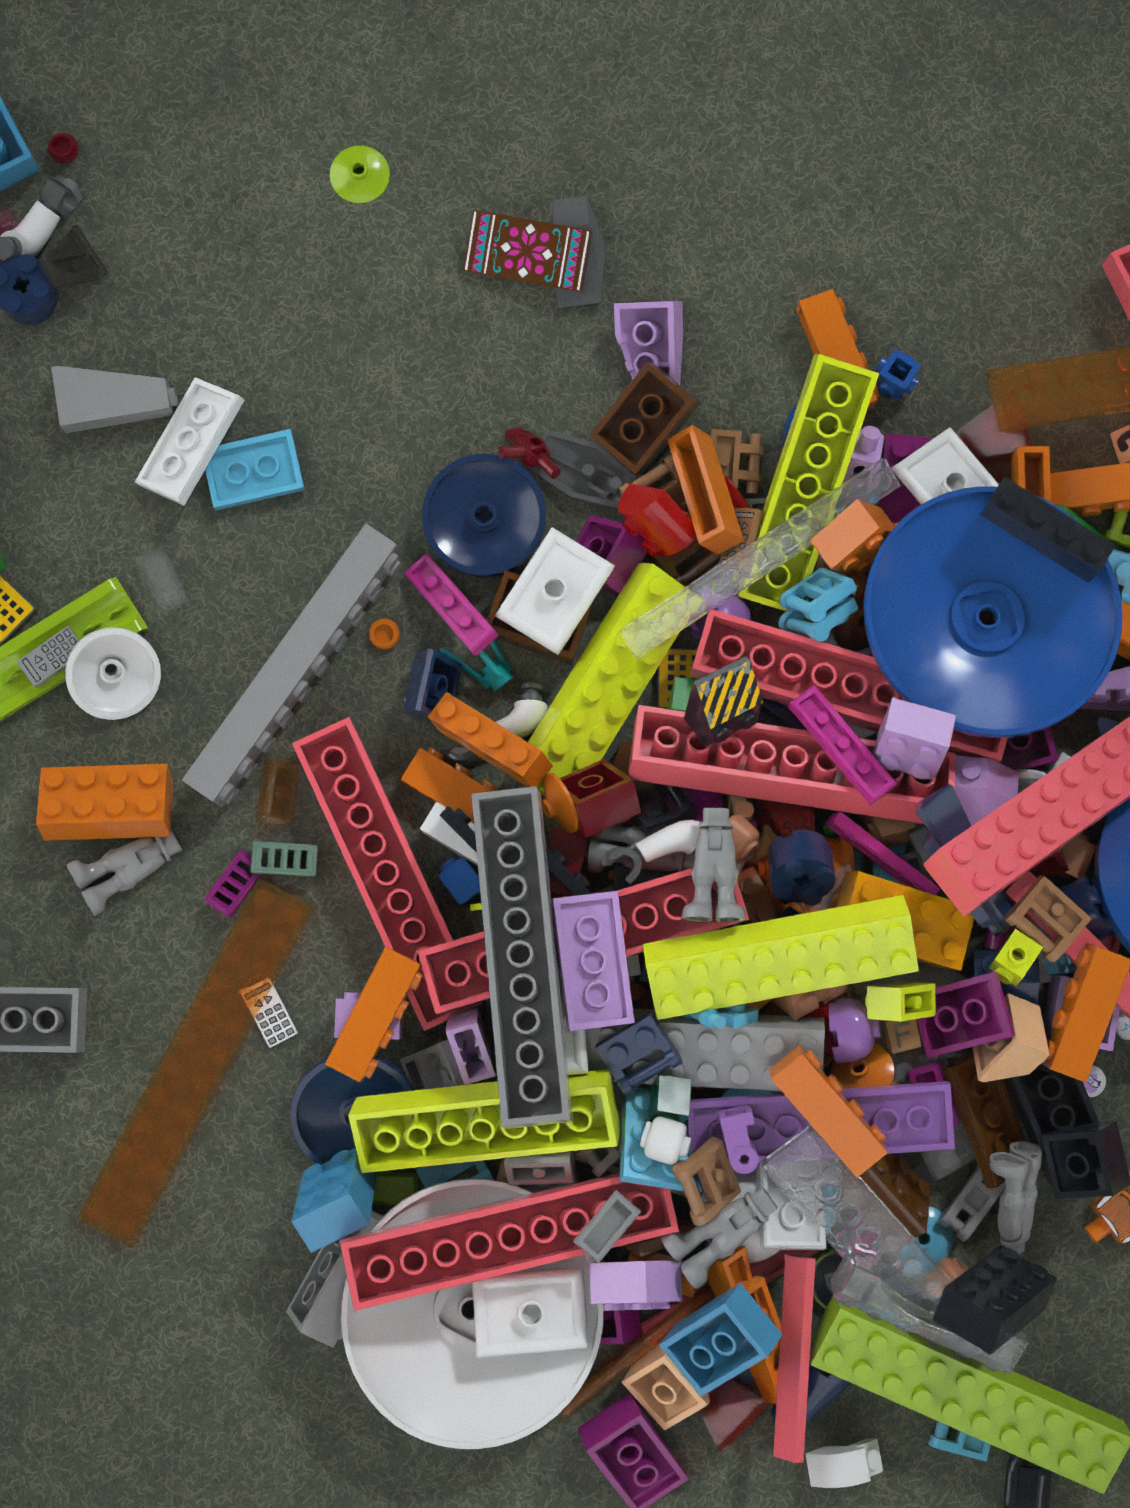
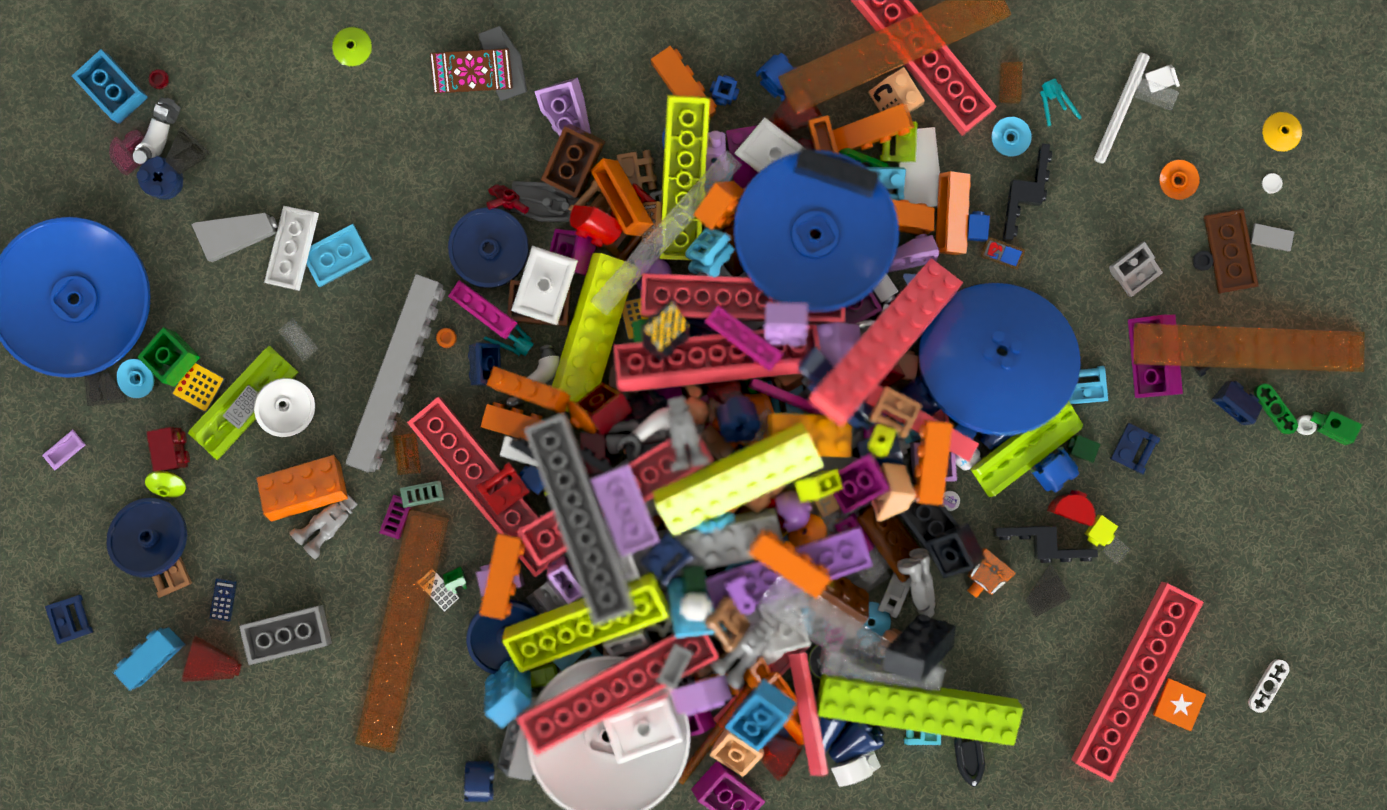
camera: 10 degrees left, 5 degrees up
(249, 1327) = (477, 781): none -> dark blue brick
(298, 1002) = (454, 579): none -> green tile
(413, 892) = (506, 495): none -> red plate
(855, 1421) = (856, 741): none -> dark blue cone
(972, 370) = (771, 71): none -> blue brick
(1069, 733) = (885, 290): none -> white brick

